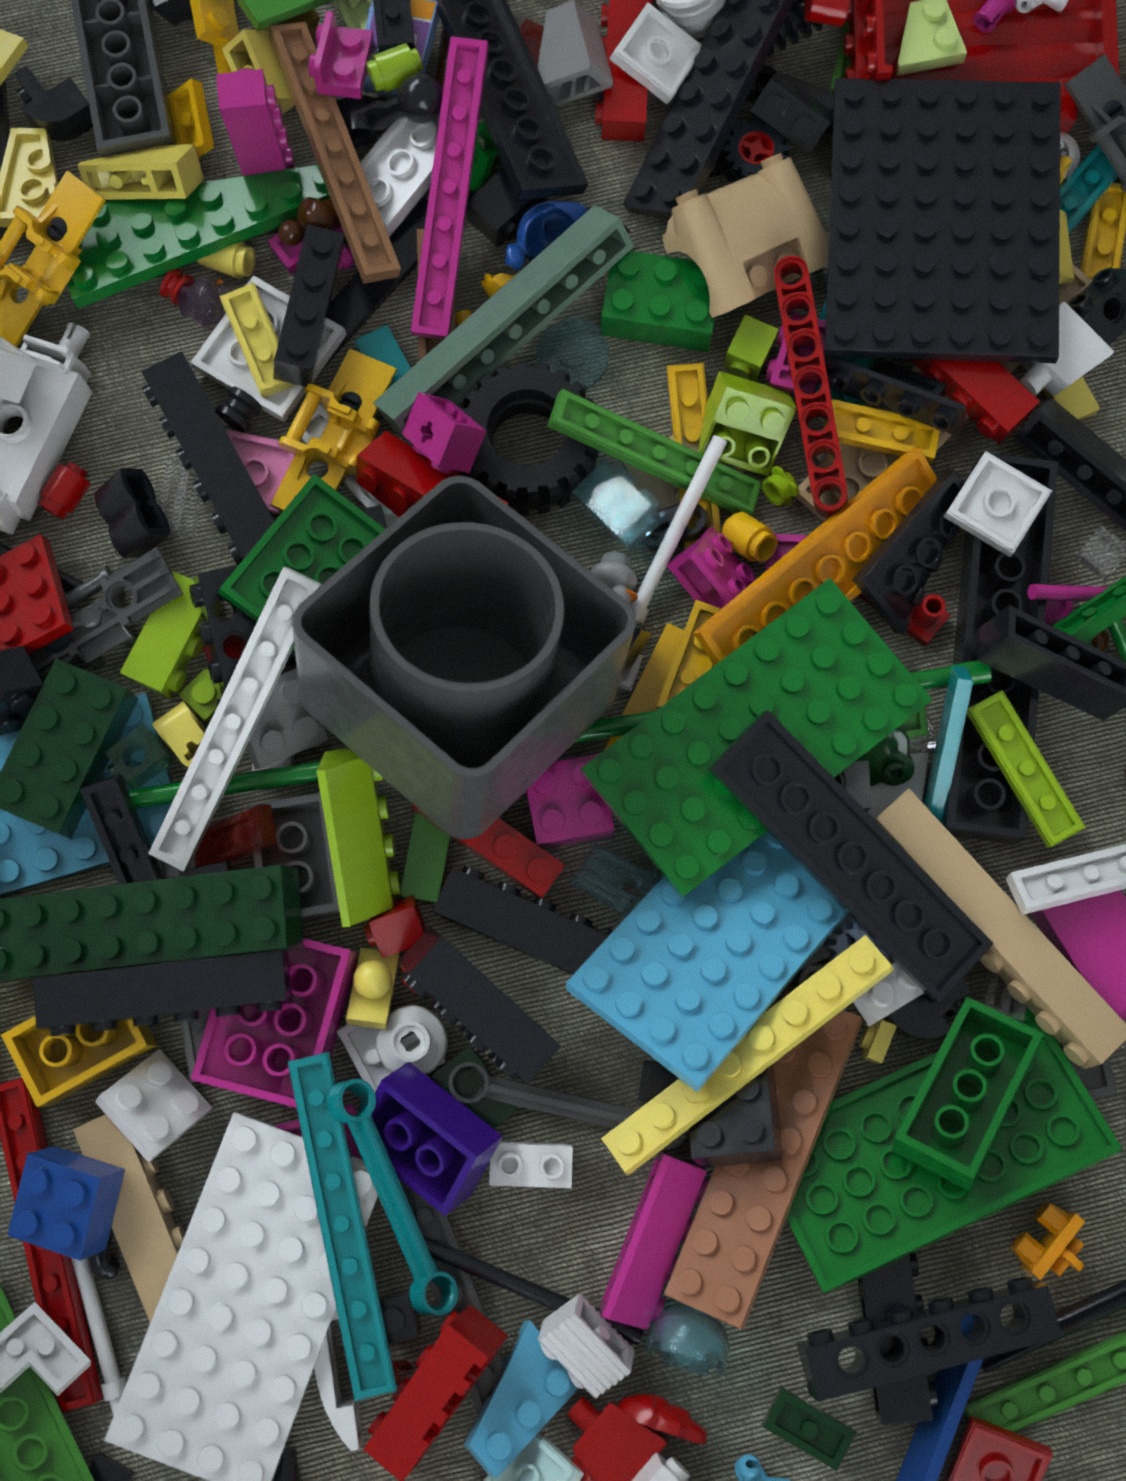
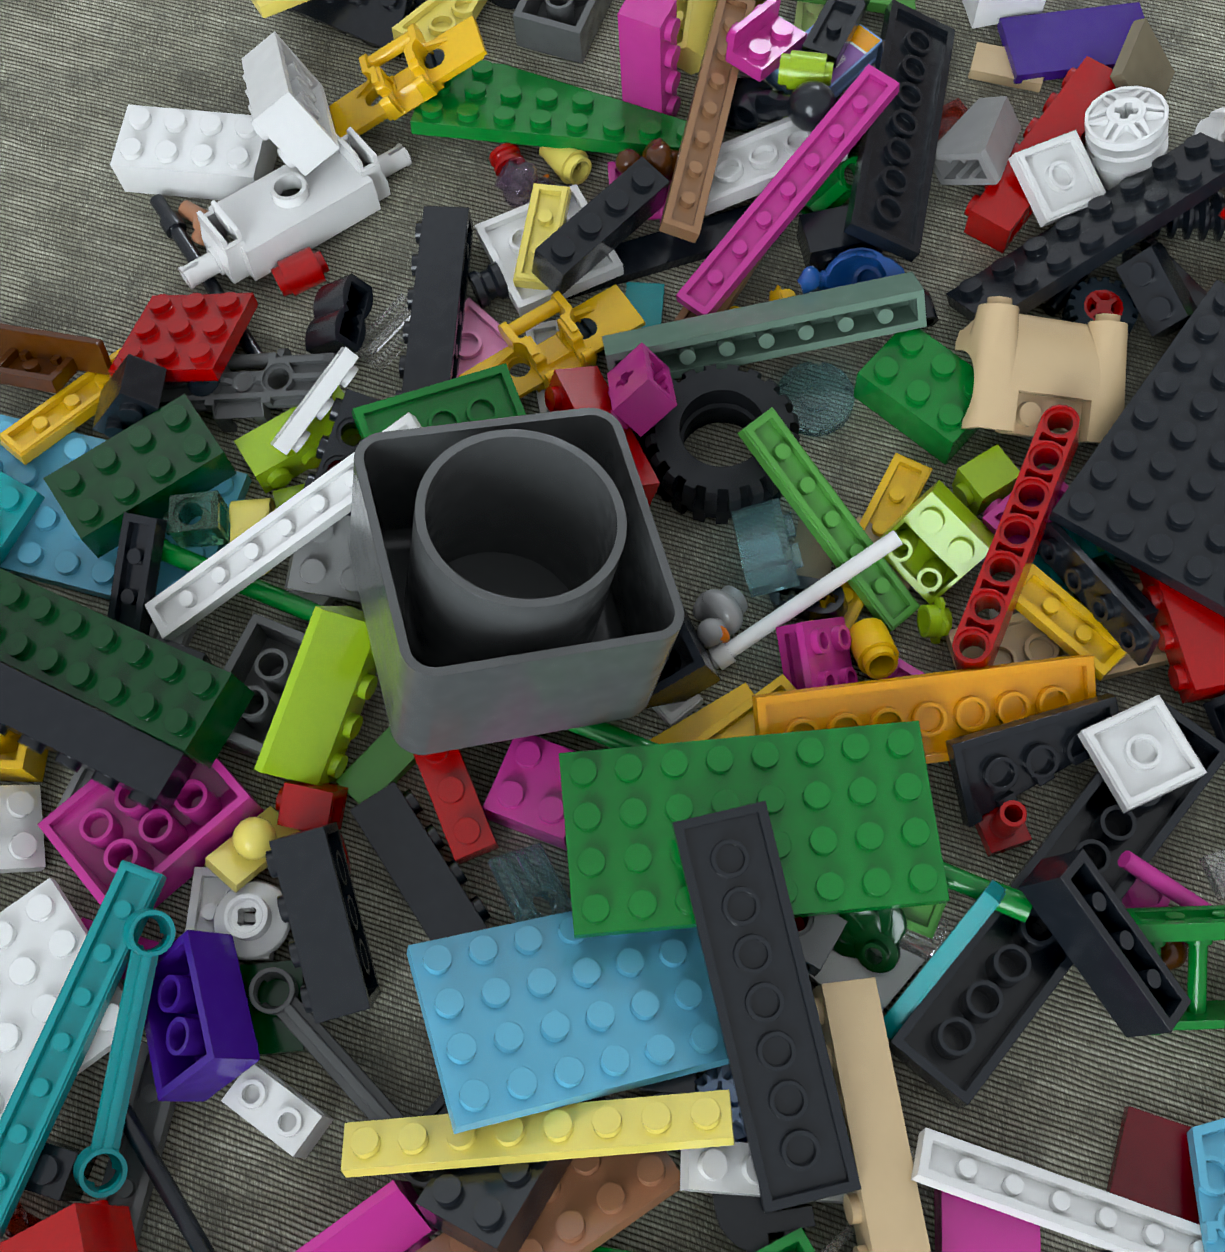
camera: 40 degrees right, 10 degrees down
(145, 173) = (540, 57): light yellow slope -> none
(175, 599) = (316, 402): none -> white plate
(191, 116) = (604, 47): yellow plate -> none
(237, 836) = (226, 635): clear red tile -> none
(876, 1041) = (687, 1215): light yellow plate -> none
(1025, 769) = (1009, 1035): lime tile -> none

